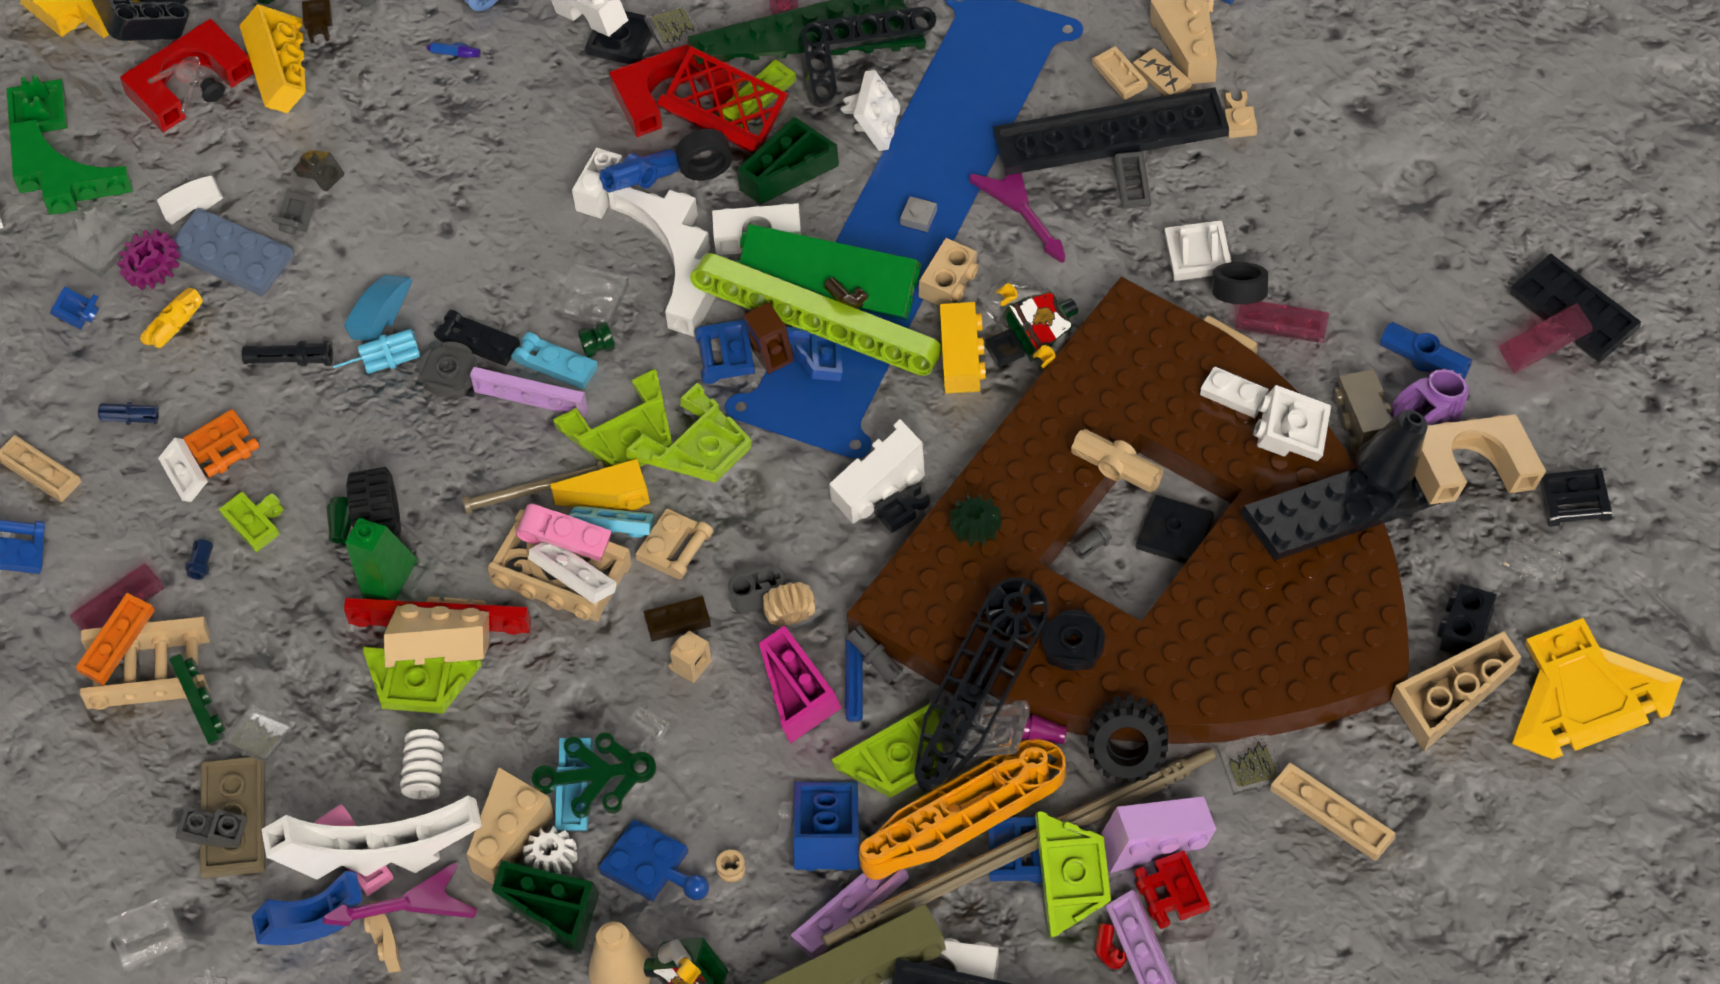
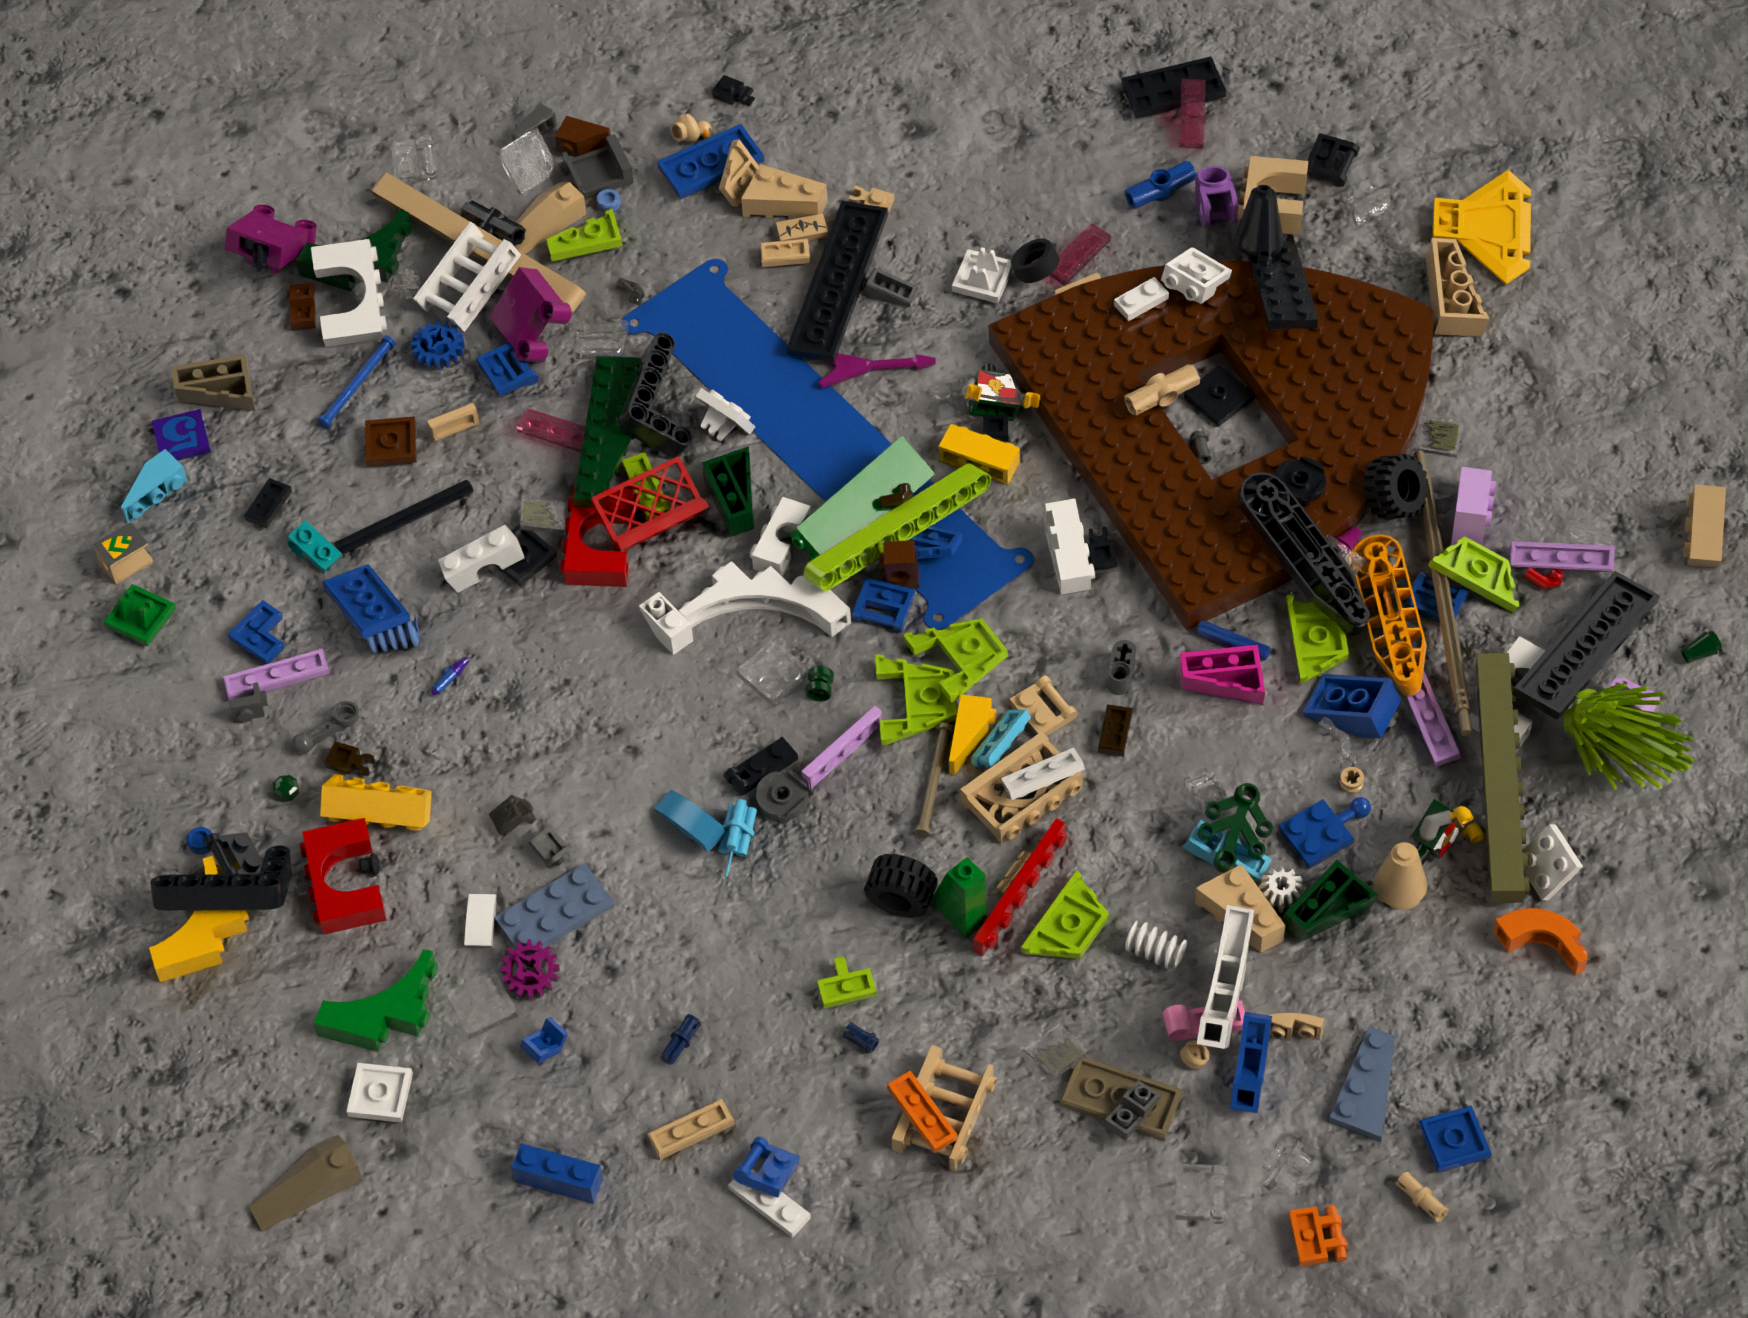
camera: 65 degrees left, 0 degrees up
(38, 101) = (297, 1002): green plate -> none
(139, 583) = (868, 1110): clear pink plate -> none
(172, 318) = (602, 974): yellow hinge -> none
(182, 469) = (765, 1017): white plate -> none
(186, 72) = (342, 873): clear plant -> none
(198, 697) = (1011, 1073): dark green plate -> none
(217, 436) = (746, 986): orange plate -> none
(302, 353) = (699, 893): black pin -> none
(338, 519) = (883, 922): dark green cone -> none
(424, 898) = (1277, 986): magenta piece -> none
(434, 633) = (1046, 888): tan wedge -> none
(555, 361) = (818, 721): medium azure plate -> none
(562, 531) = (1005, 764): bright pink plate -> none
(639, 170) = (680, 587): blue piece -> none
(686, 652) = (1157, 733): tan brick -> none
(707, 167) = (691, 539): black tyre -> none
(789, 604) = (1152, 649): tan gear -> none
(874, 654) = (1224, 615): dark grey pin -> none
(918, 214) = (833, 431): light grey plate -> none
(944, 272) = (906, 423): tan brick -> none
(975, 520) = (1163, 494): clear green gear -> none
(1180, 884) = (1518, 515): red plate -> none
(1333, 811) = (1506, 404): tan plate -> none
(1362, 406) = (1208, 236): dark tan wedge -> none
(1471, 622) = (1399, 262): black brick -> none

